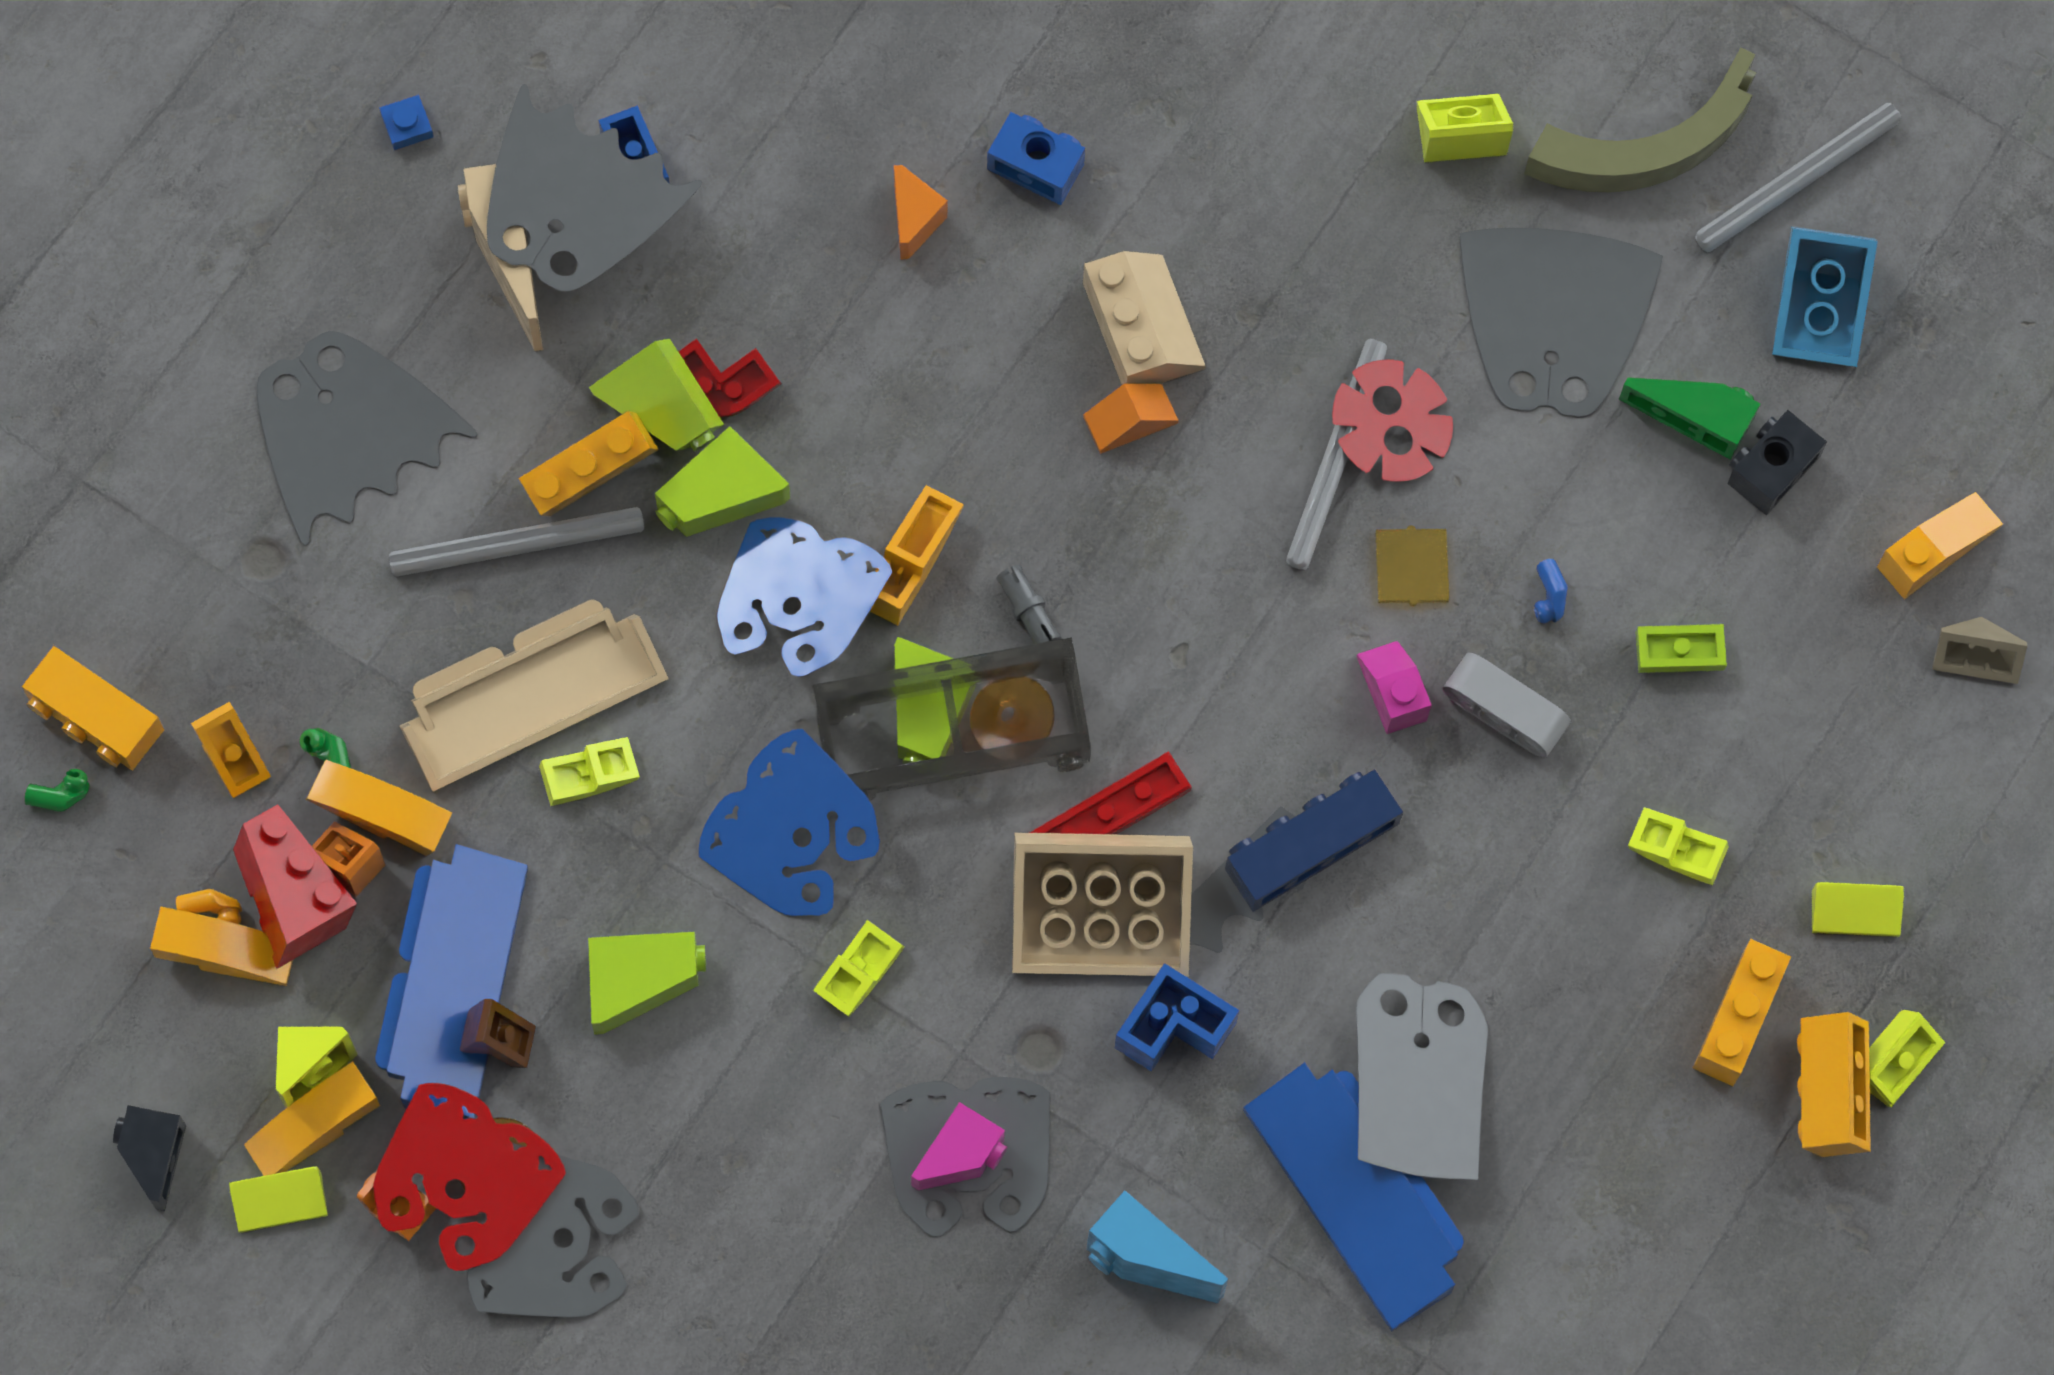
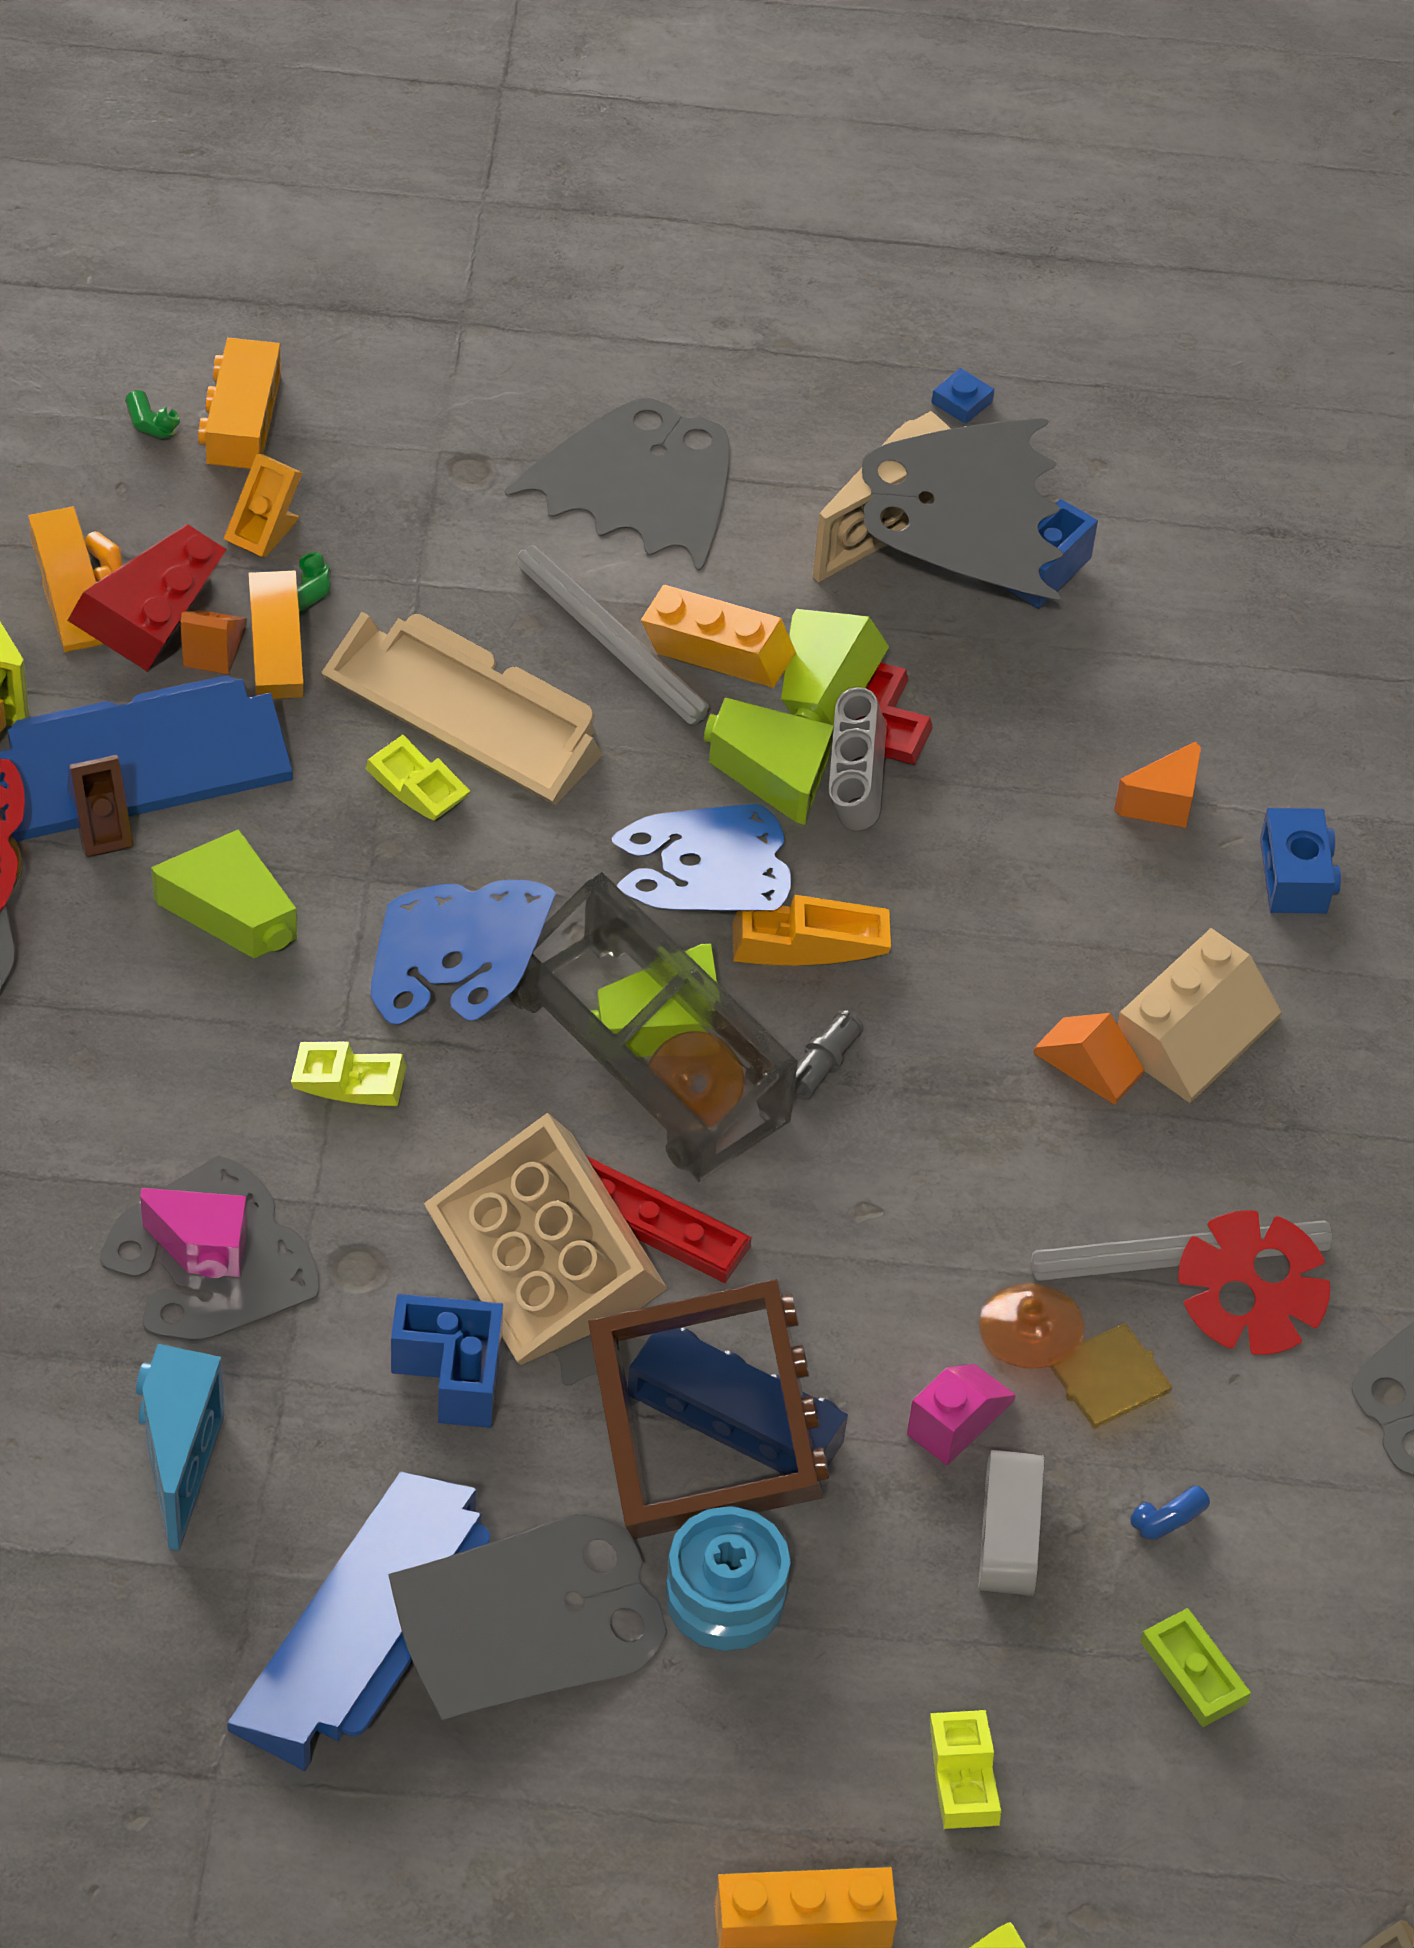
camera: 60 degrees right, 20 degrees down
(753, 409) = (862, 777): none -> light grey beam
(1338, 787) = (759, 1496): none -> reddish brown window
(1347, 614) = (1033, 1340): none -> clear orange dish
(1466, 900) = (727, 1578): none -> dark azure wheel

